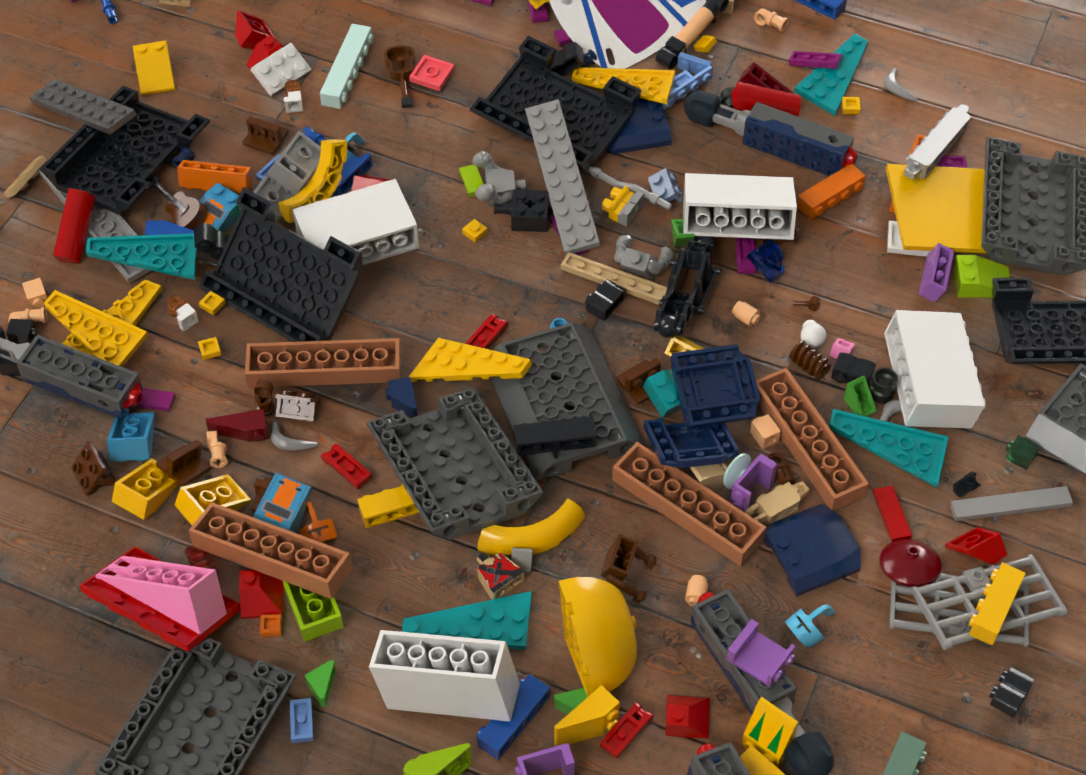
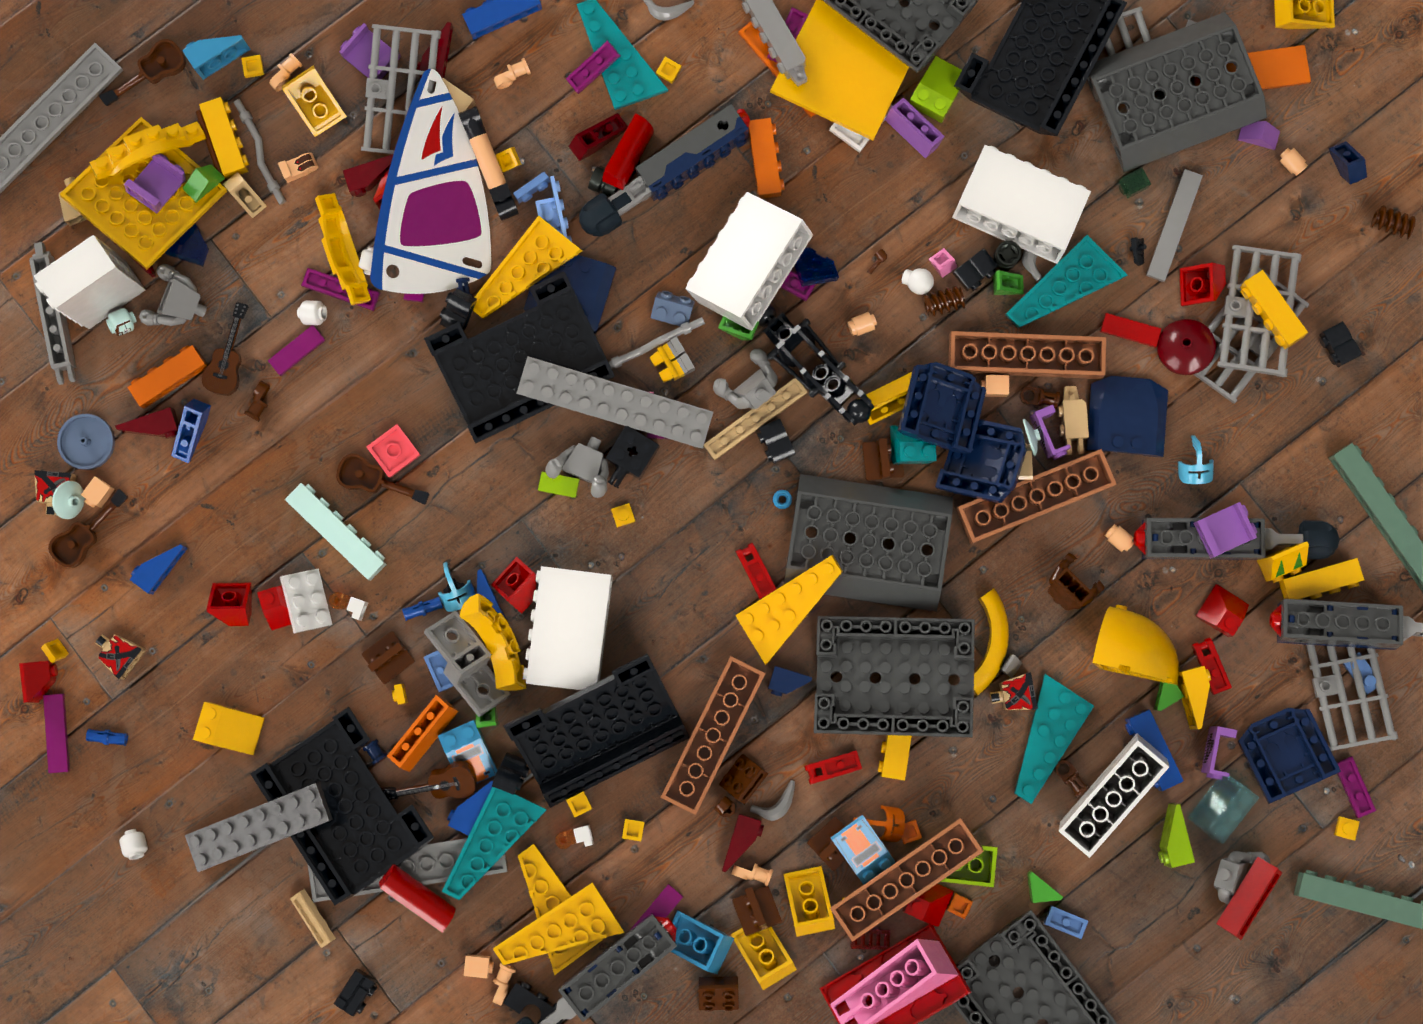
camera: 60 degrees left, 30 degrees up
(32, 52) = (133, 844): none -> white head
(240, 154) = (399, 694): none -> yellow plate
(555, 435) = (920, 576): black brick -> none

